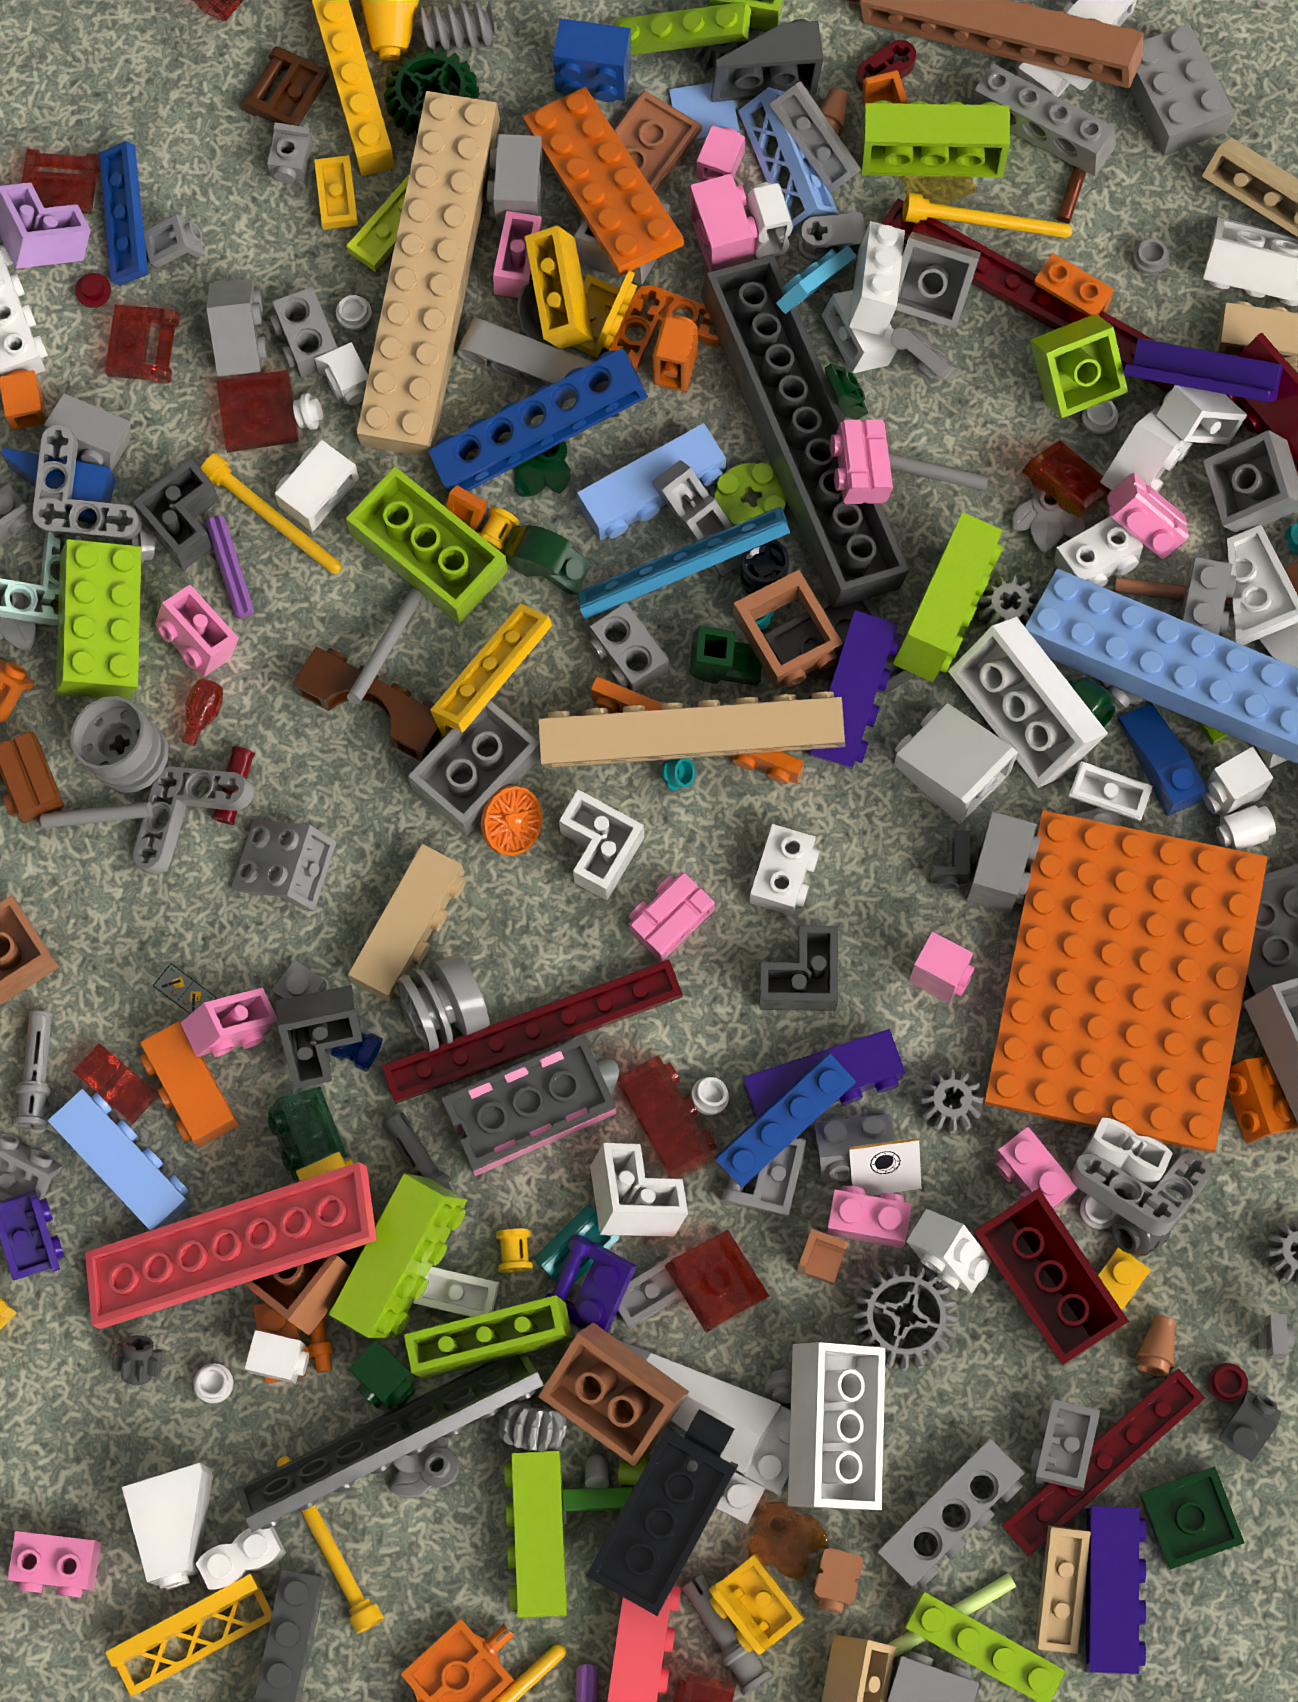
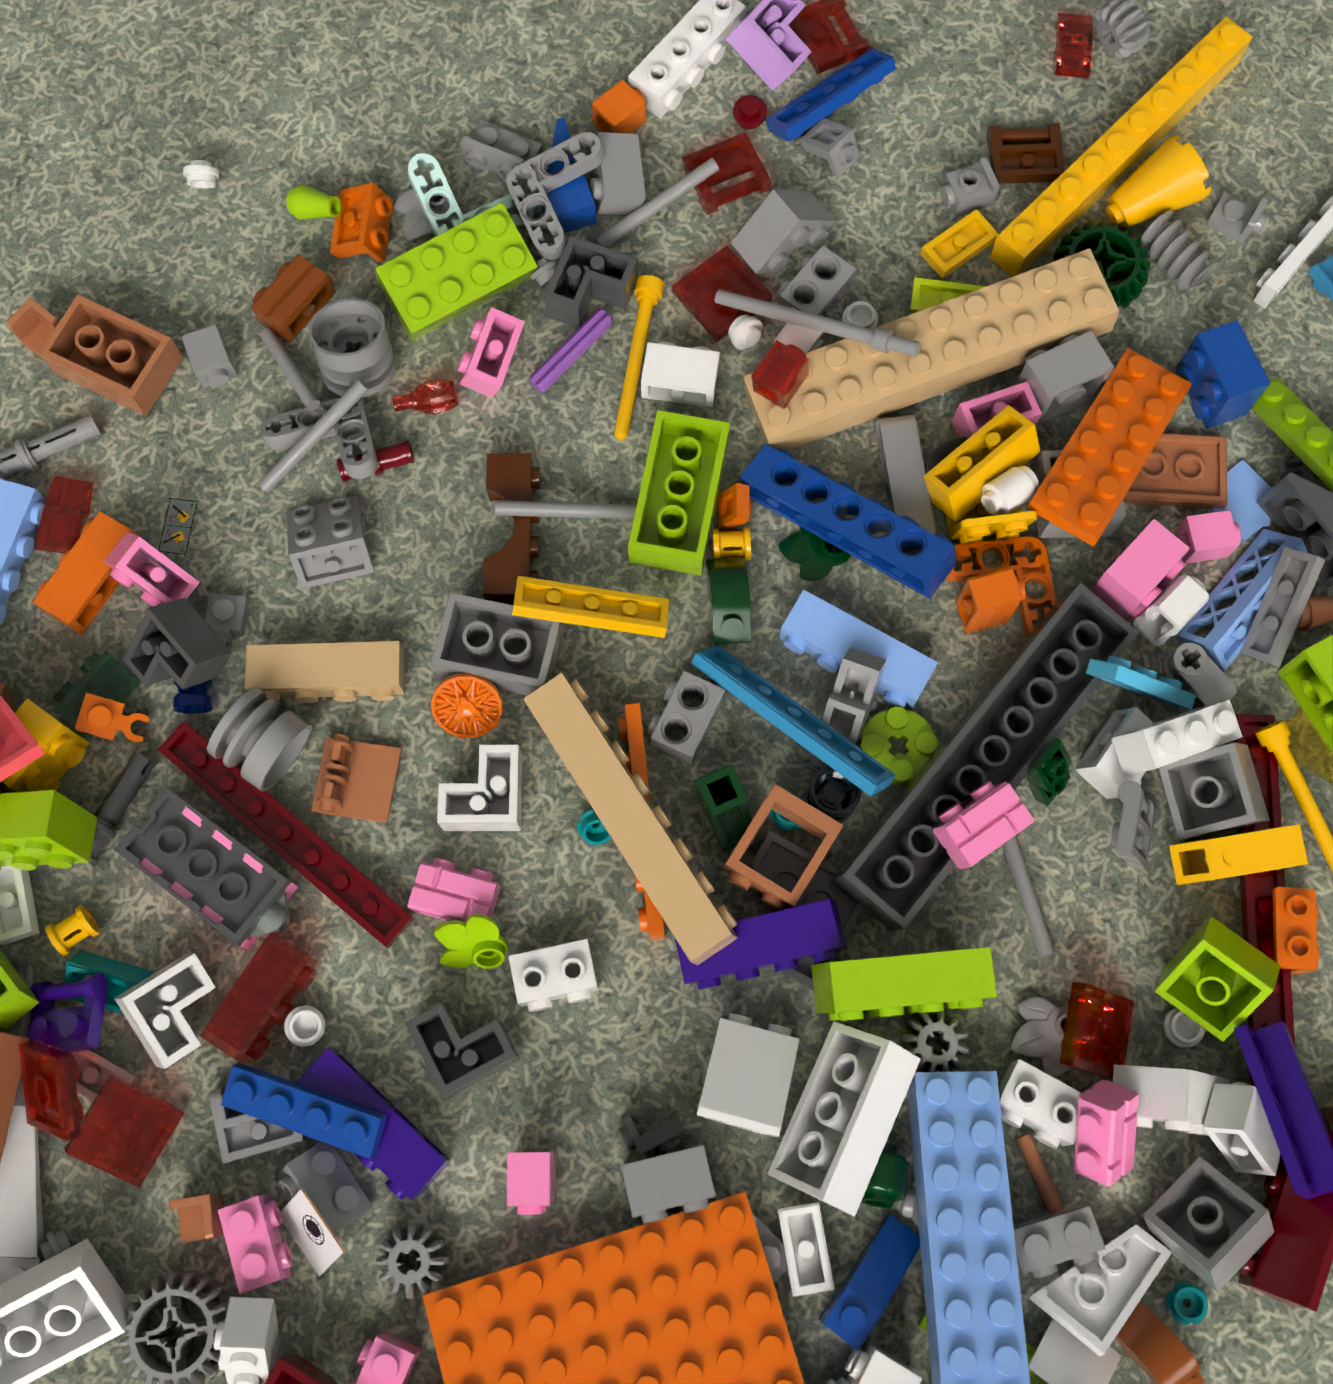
camera: 60 degrees right, 0 degrees up
(40, 879) = (209, 356): none -> light grey brick
(136, 411) = (657, 203): none -> light grey bar
(181, 823) = (313, 436): none -> light grey bar
(339, 1130) = (104, 716): none -> orange plate
(382, 397) = (780, 373): none -> clear red brick
(403, 300) = (880, 339): none -> light grey bar
(518, 949) = (356, 779): none -> nougat hinge
(596, 280) = (1009, 490): none -> white brick
(651, 1315) = (51, 1089): none -> clear red plate
(721, 919) = (472, 943): none -> lime plate
(993, 291) = (1238, 854): none -> yellow slope

